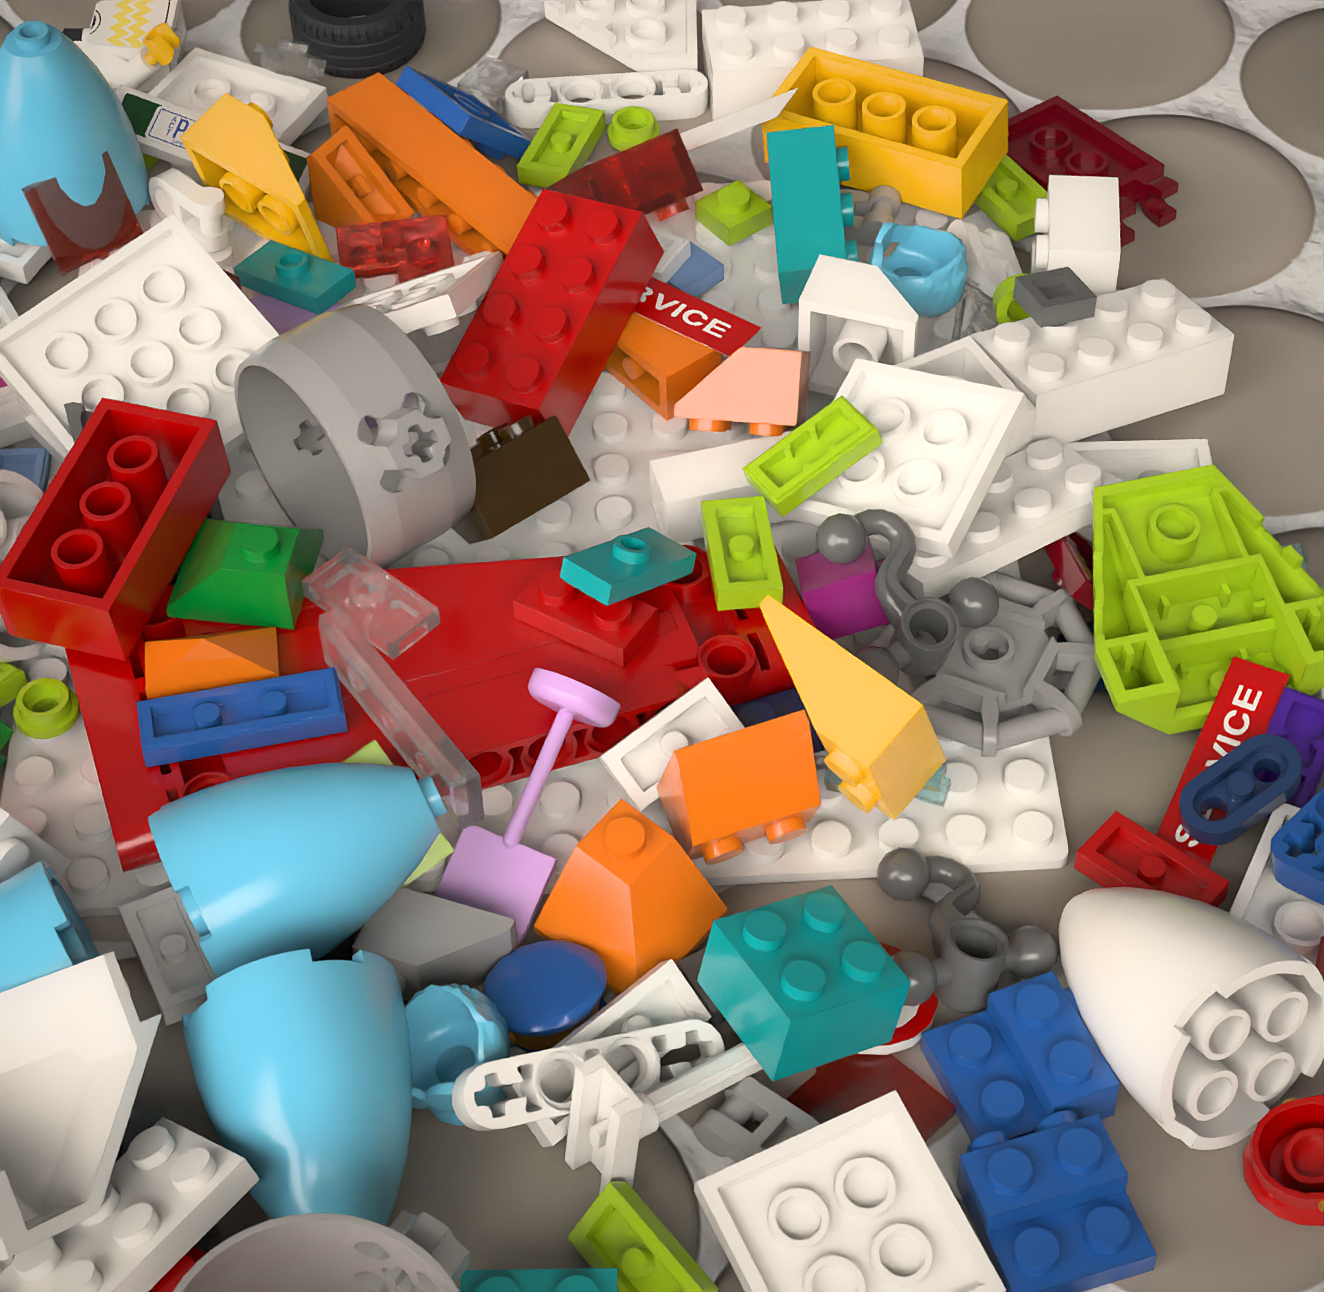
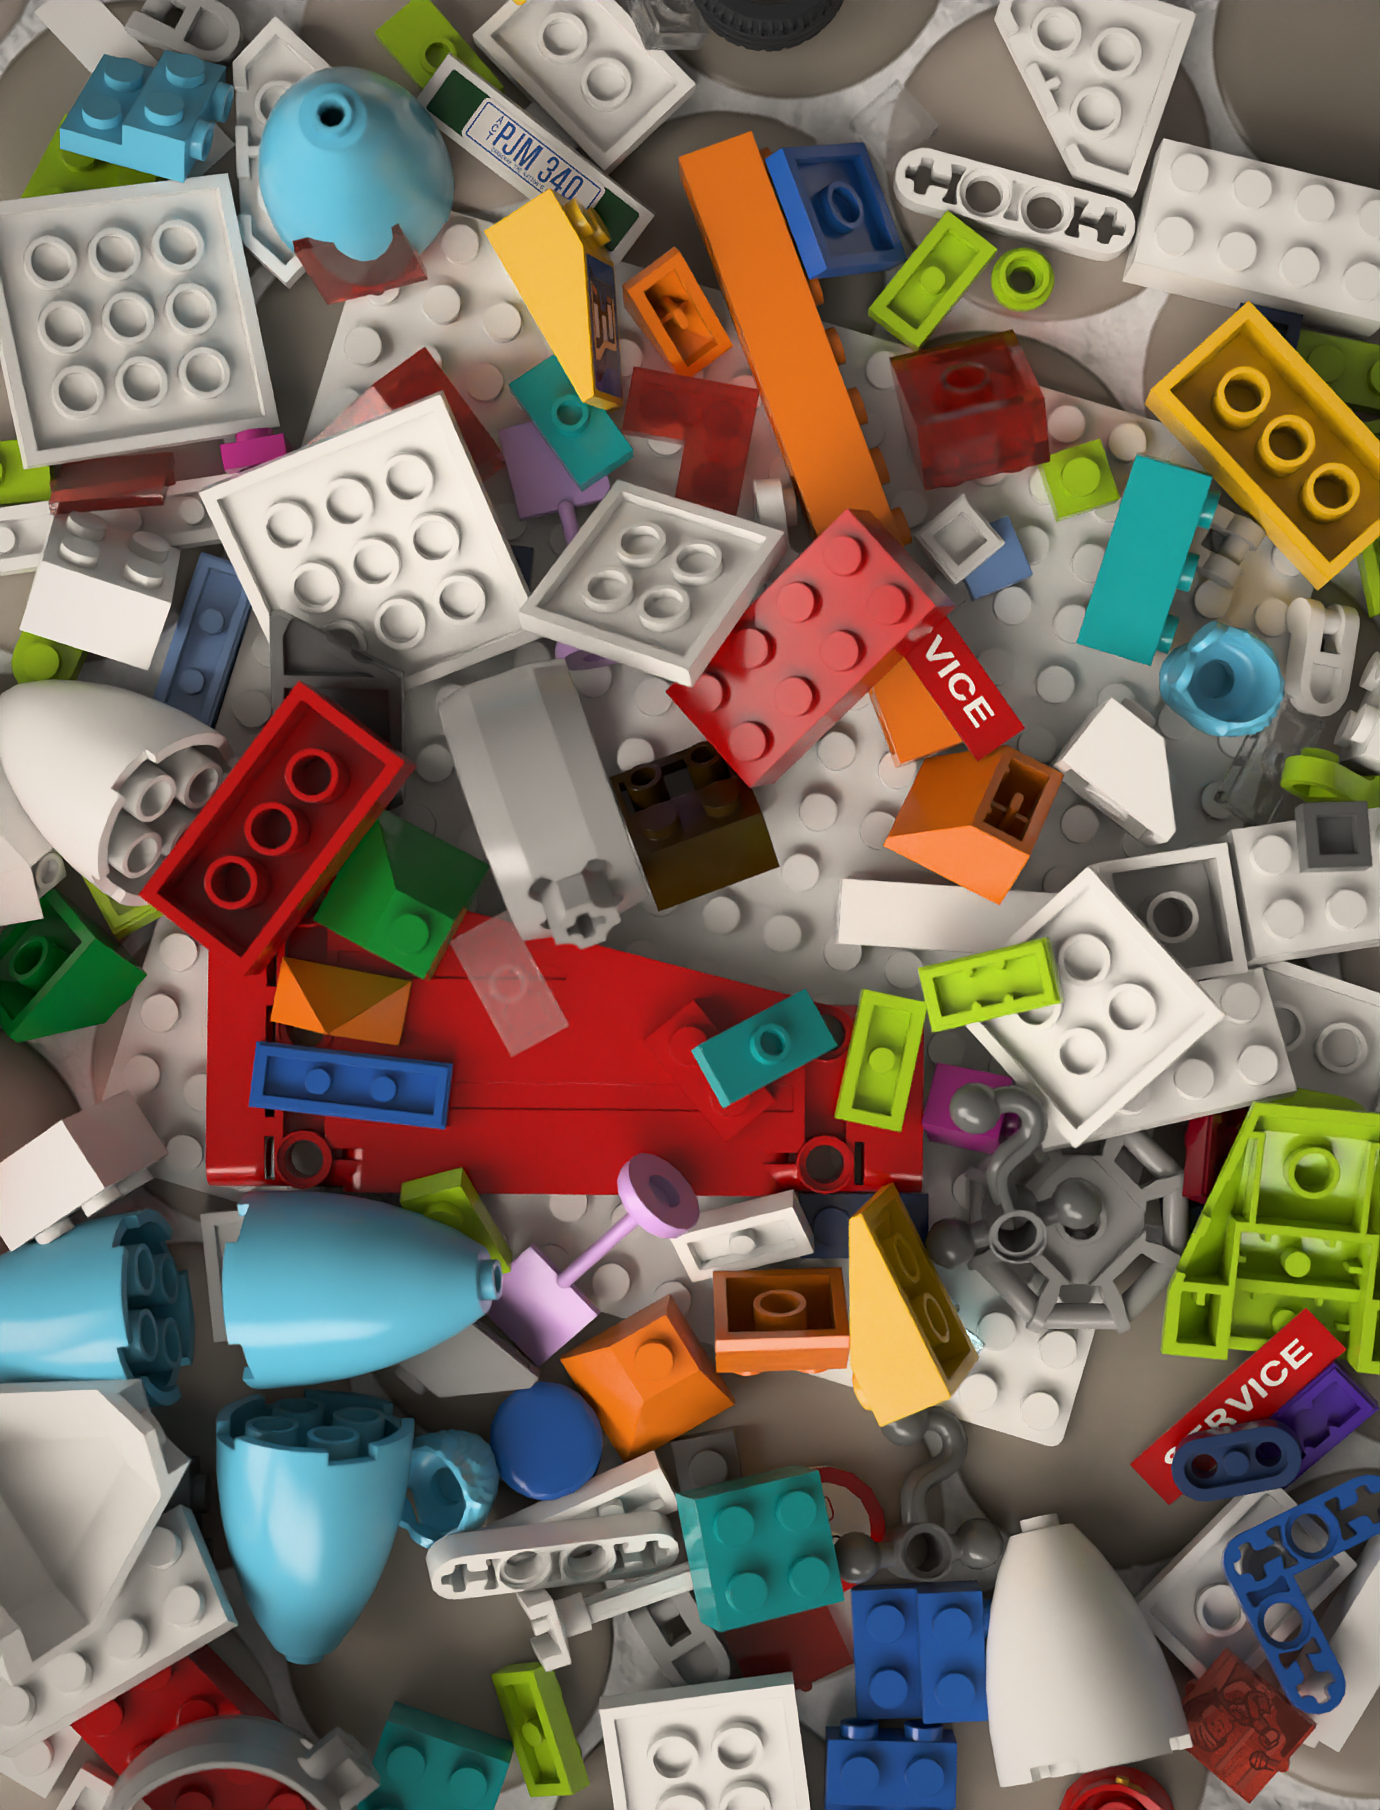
camera: 15 degrees right, 40 degrees up
(45, 709) = (162, 960): lime plate -> none
(194, 207) = (491, 282): white plate -> none
(401, 717) = (492, 1157): clear tile -> none
(736, 121) = (1101, 368): white sticker -> none
(1131, 856) = (1120, 1501): red plate -> none

